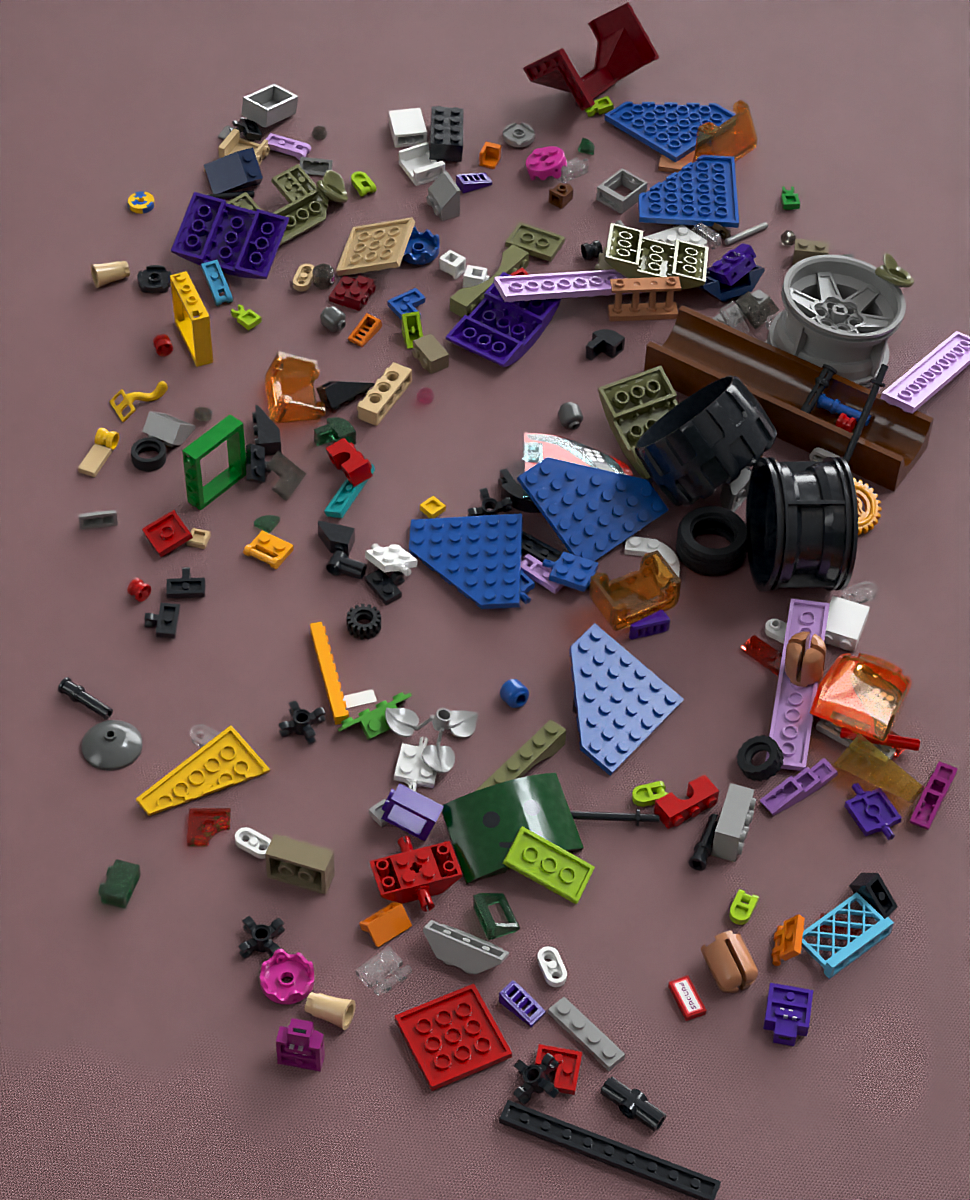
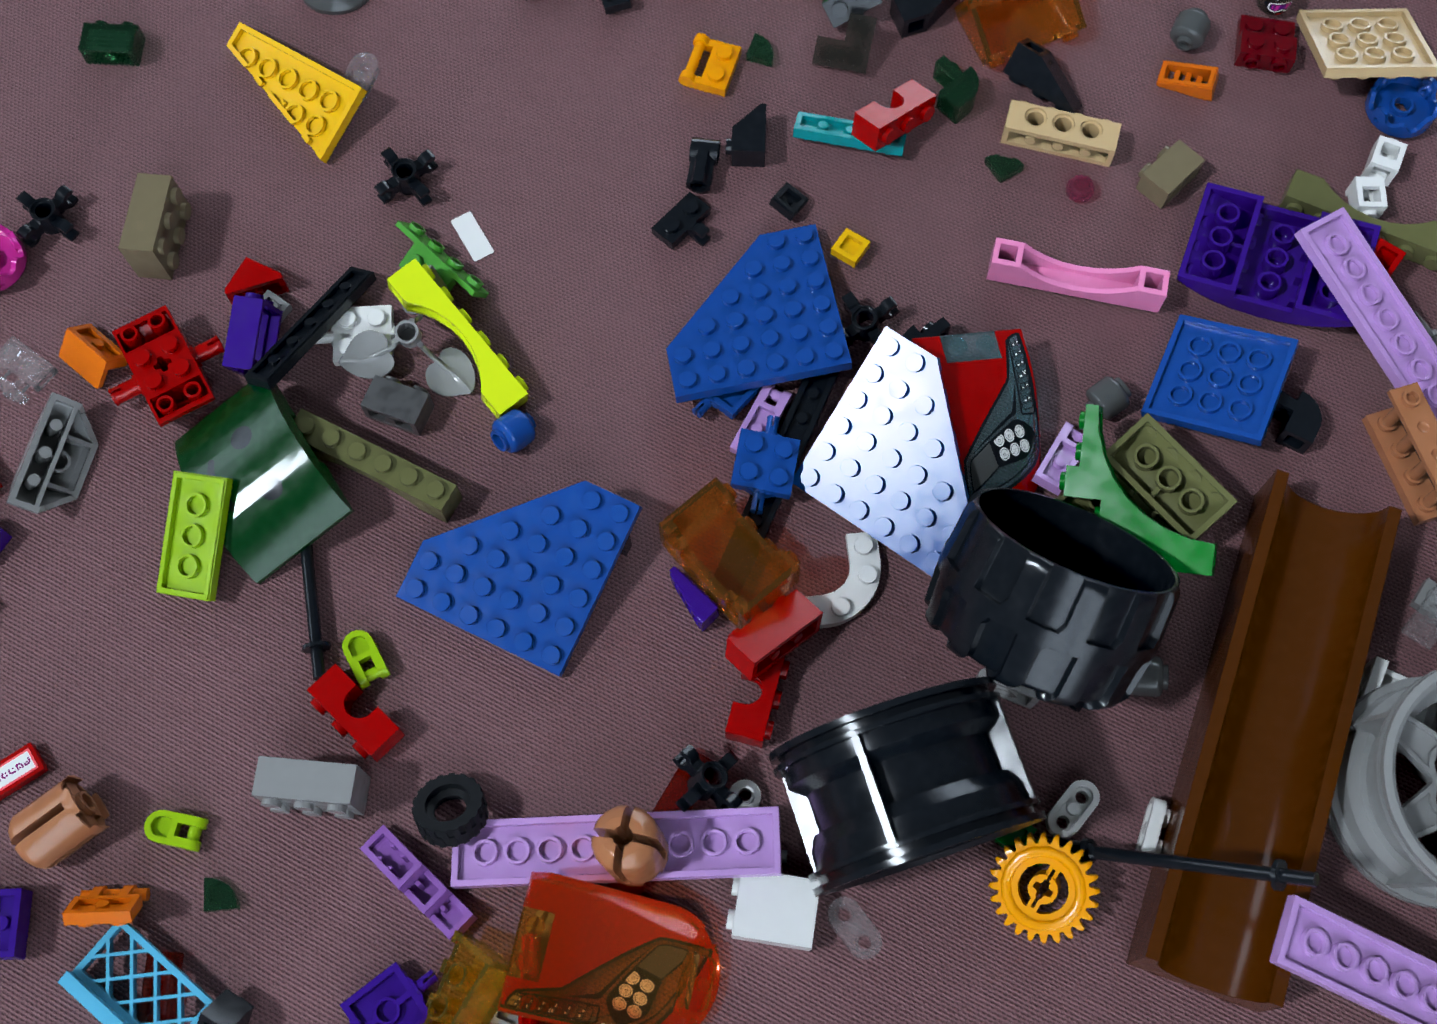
camera: 80 degrees right, 20 degrees up
(206, 823) = (226, 112): clear red tile -> none
(255, 844) = (196, 173): white plate -> none
(328, 672) = (504, 188): light orange piece -> none
(356, 818) = (255, 278): none -> red slope
(363, 630) = (603, 195): black tyre -> none
(388, 530) = (788, 201): none -> black tile
(391, 558) = (724, 213): white plate -> none
(396, 427) = (1003, 167): none -> clear green tile
(406, 302) = (1265, 114): blue plate -> none
(411, 328) = (1212, 135): lime slope -> none
(417, 781) = (310, 328): none -> black tile
(476, 427) = (1129, 287): none -> bright pink arch
(477, 751) = (397, 404): none -> flat silver brick
(479, 694) = (420, 294): none -> neon yellow arch
(494, 930) = (112, 474): clear green tile -> none
(552, 968) = (42, 577): white plate -> none
(574, 364) = (1220, 379): none -> blue plate
(604, 442) = (1058, 457): none -> lavender plate
(631, 420) = (1097, 481): none -> green arch
(694, 588) = (773, 634): none -> red brick
(703, 849) = (252, 748): black pin -> none
(704, 600) = (751, 721): none -> red arch
(712, 561) = (880, 618): black tyre -> none
(767, 631) = (714, 772): none -> black pin
(788, 892) = (219, 896): none -> clear green tile
(823, 383) = (1296, 783): black pin -> none
(835, 406) = (1266, 822): blue pin -> none
(845, 422) = (1232, 845): red wheel -> none

